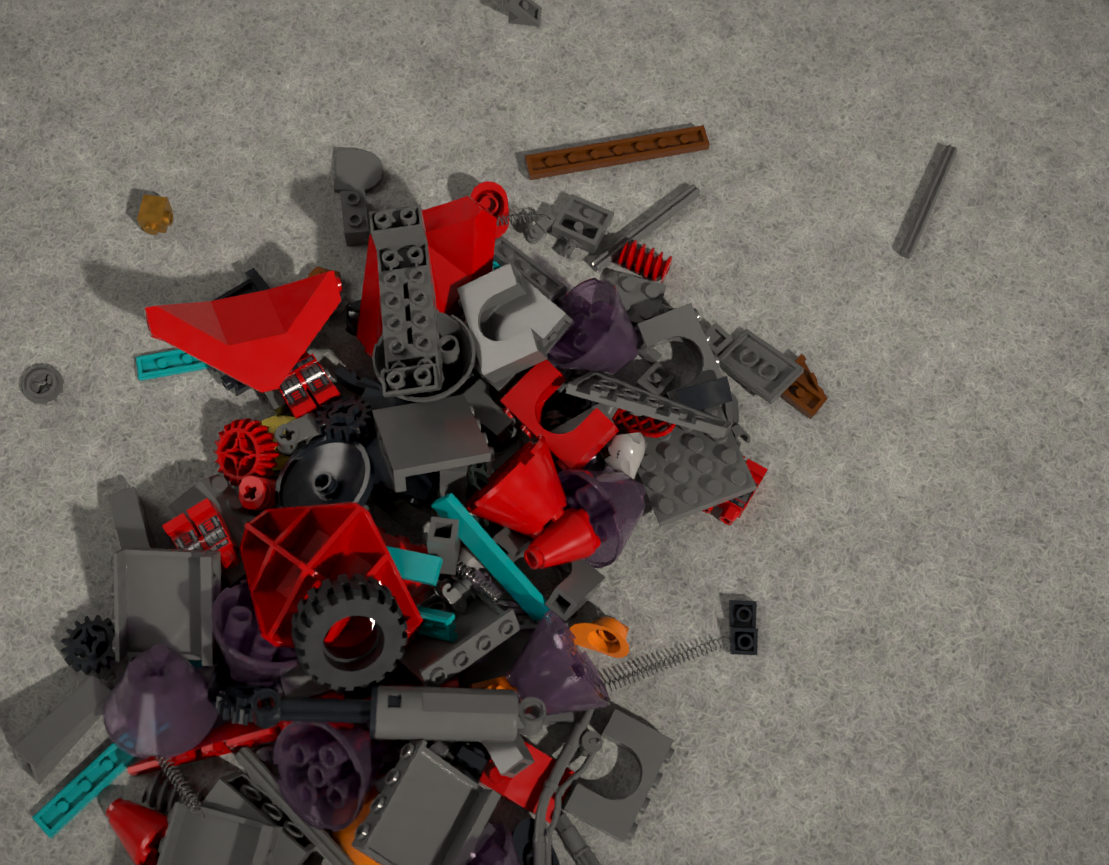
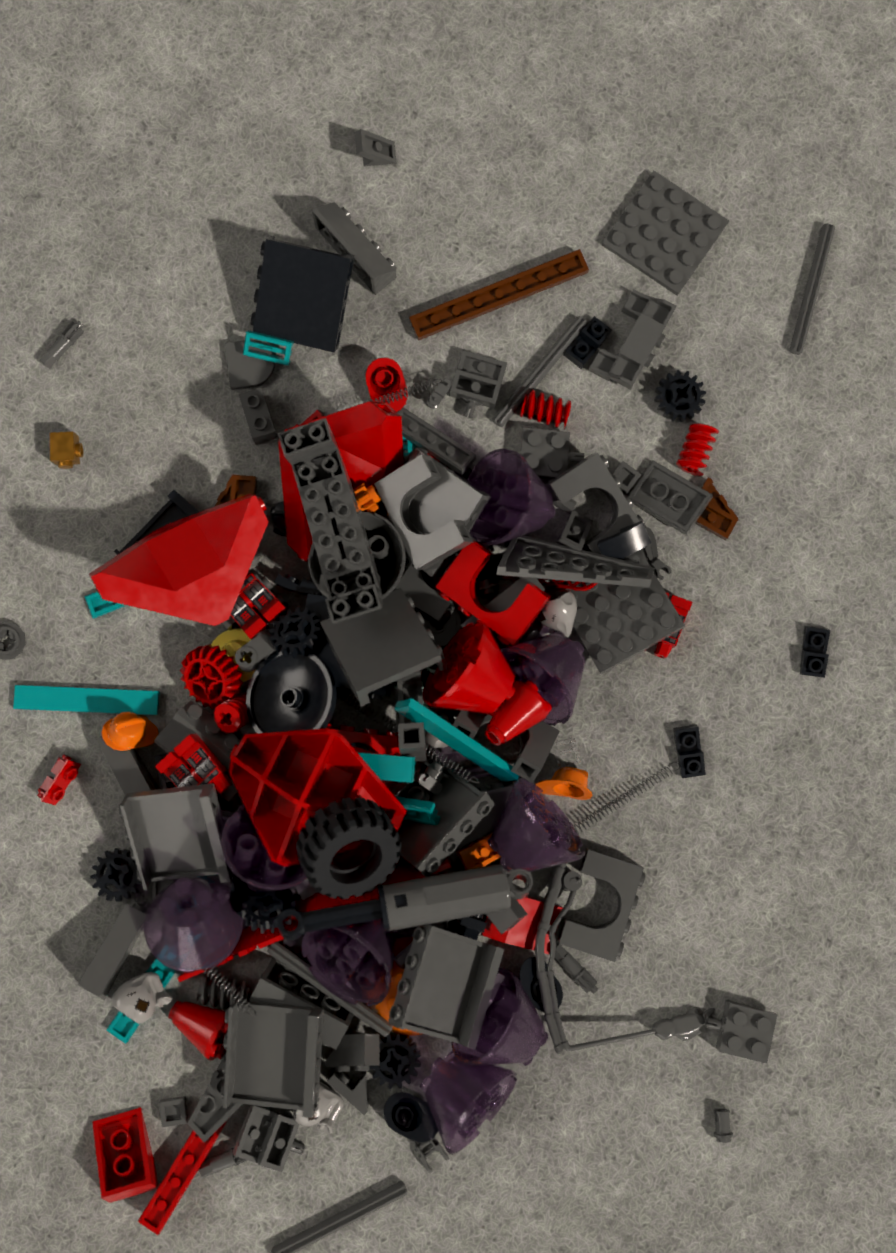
camera: 10 degrees left, 15 degrees up
(63, 529) = (54, 789): none -> red hinge
(78, 781) = (140, 996): none -> light grey piece
(109, 458) = (86, 700): none -> teal tile
(144, 493) = (129, 731): none -> orange piece
(179, 122) = (62, 344): none -> dark grey piece
(397, 165) = (271, 339): none -> teal tile
(423, 112) = (301, 294): none -> black panel
(447, 301) = (367, 498): none -> orange gear
(483, 85) = (349, 238): none -> dark grey slope
(698, 210) = (587, 342): none -> black slope
(750, 216) = (651, 317): none -> dark grey bracket
(785, 282) = (672, 389): none -> black gear
(789, 128) = (665, 232): none -> dark grey plate
(793, 324) = (694, 448): none -> red piece
(891, 547) = (814, 649): none -> black slope

